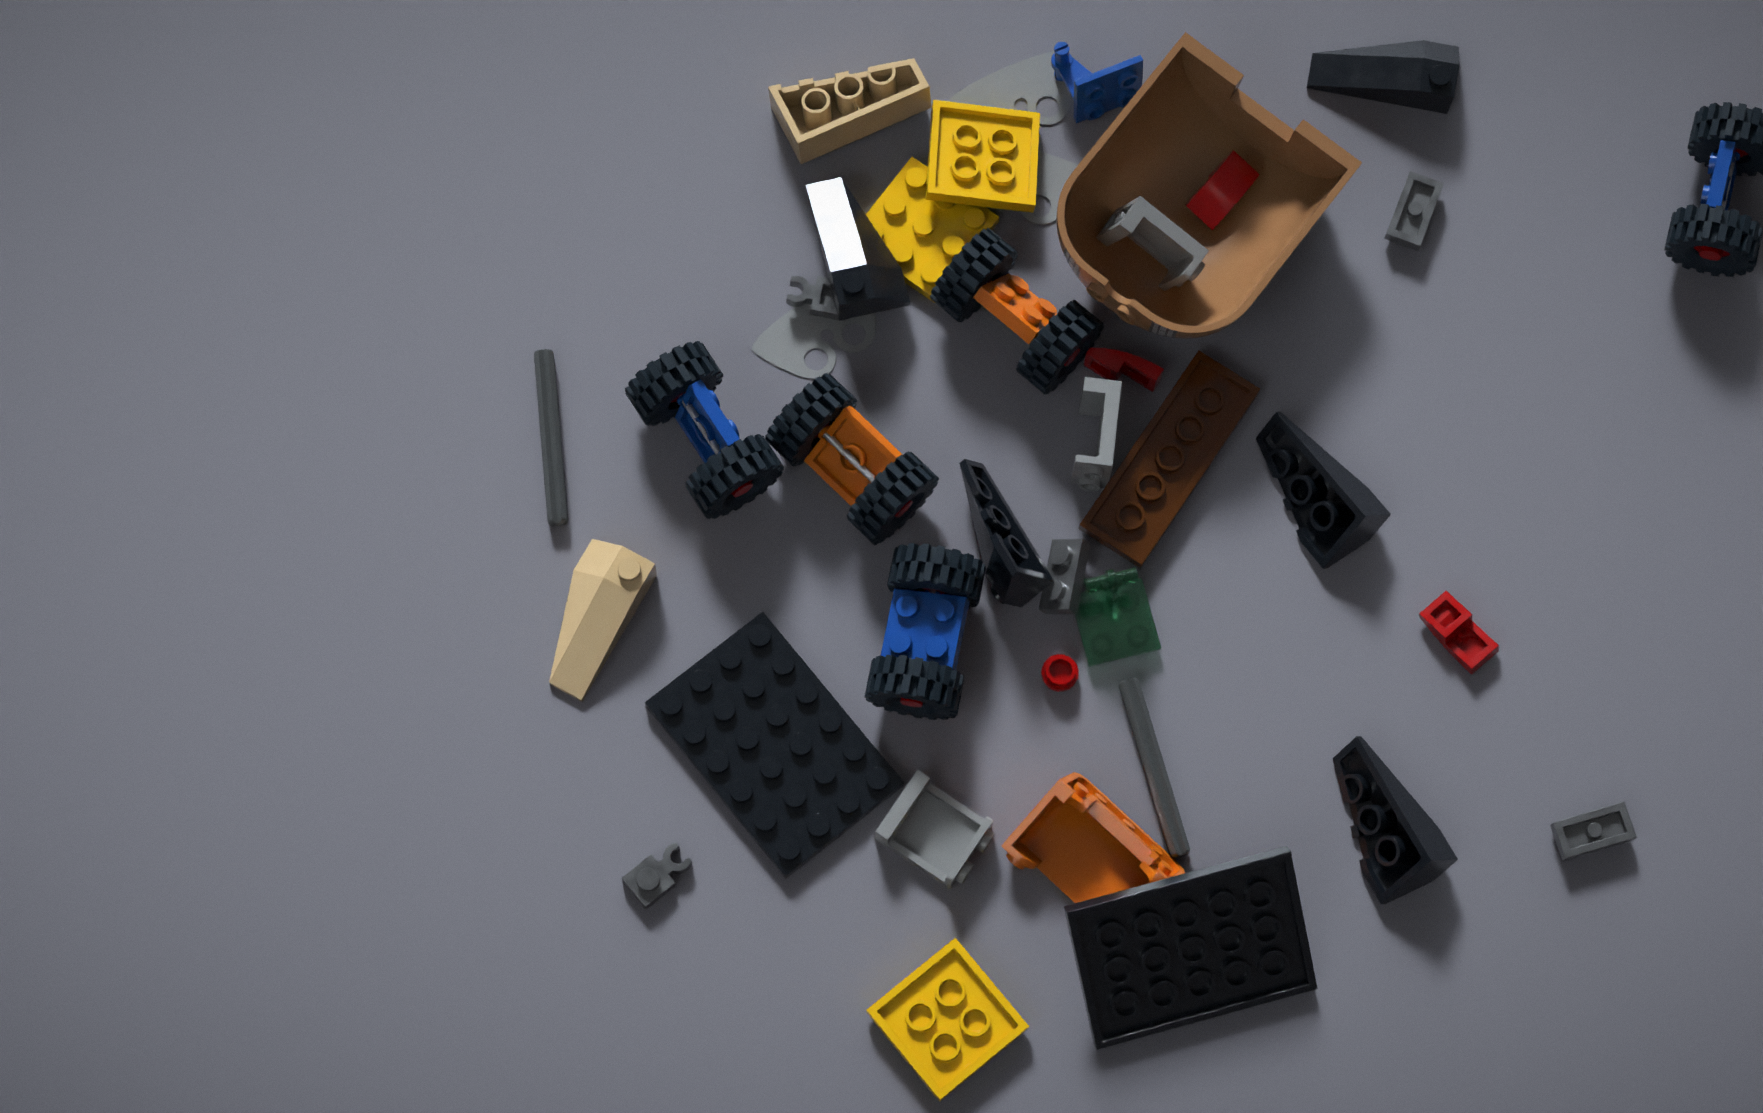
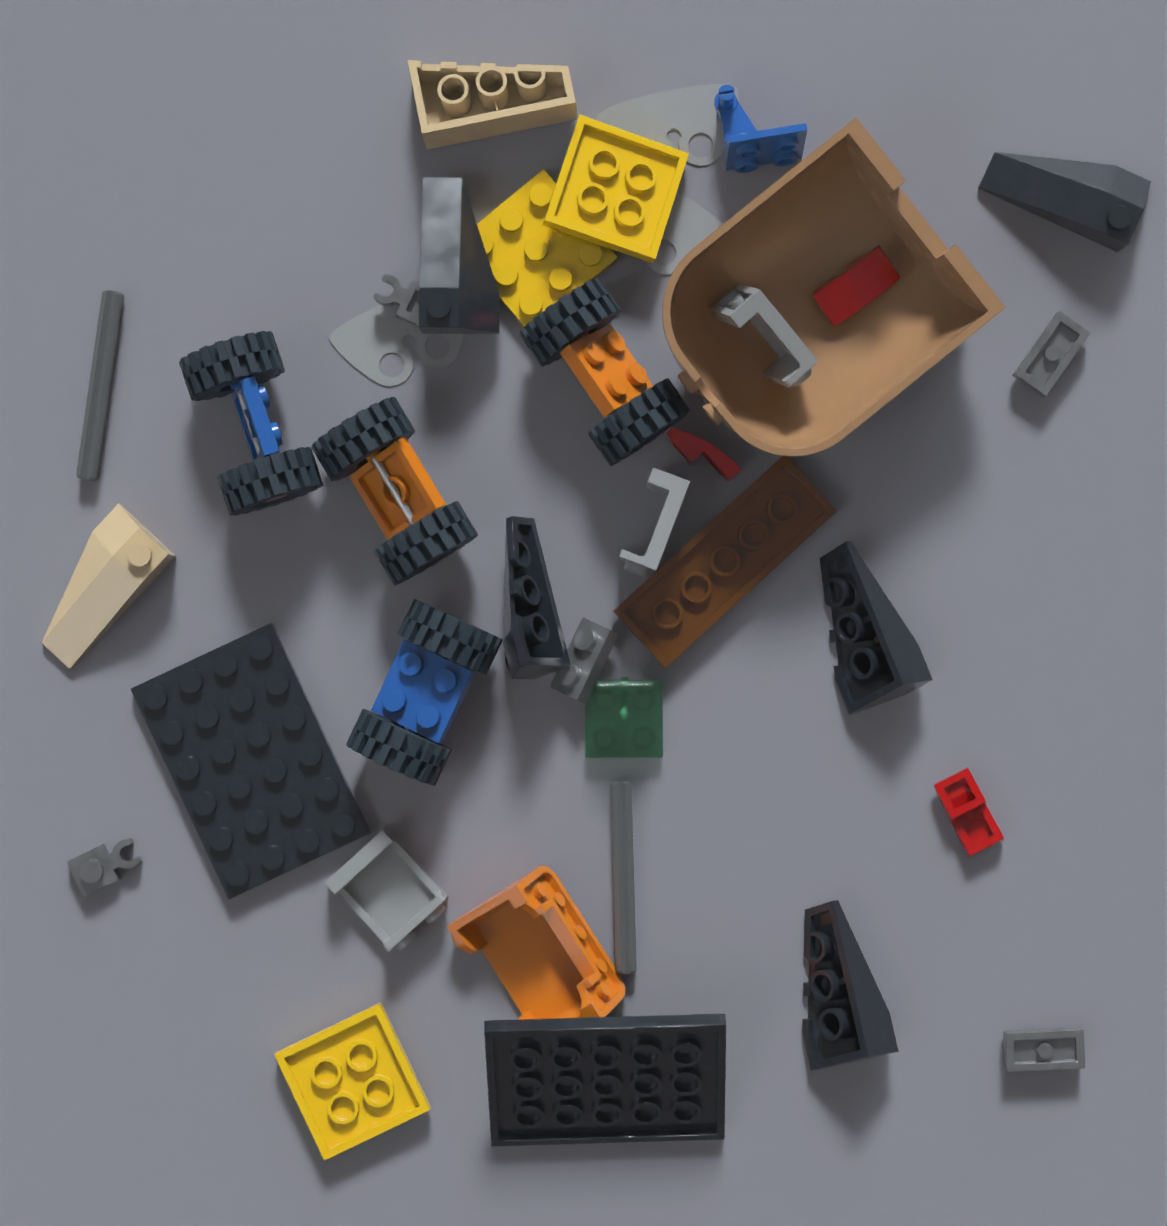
camera: 15 degrees right, 15 degrees up
(1059, 673) = (554, 757): red plate -> none

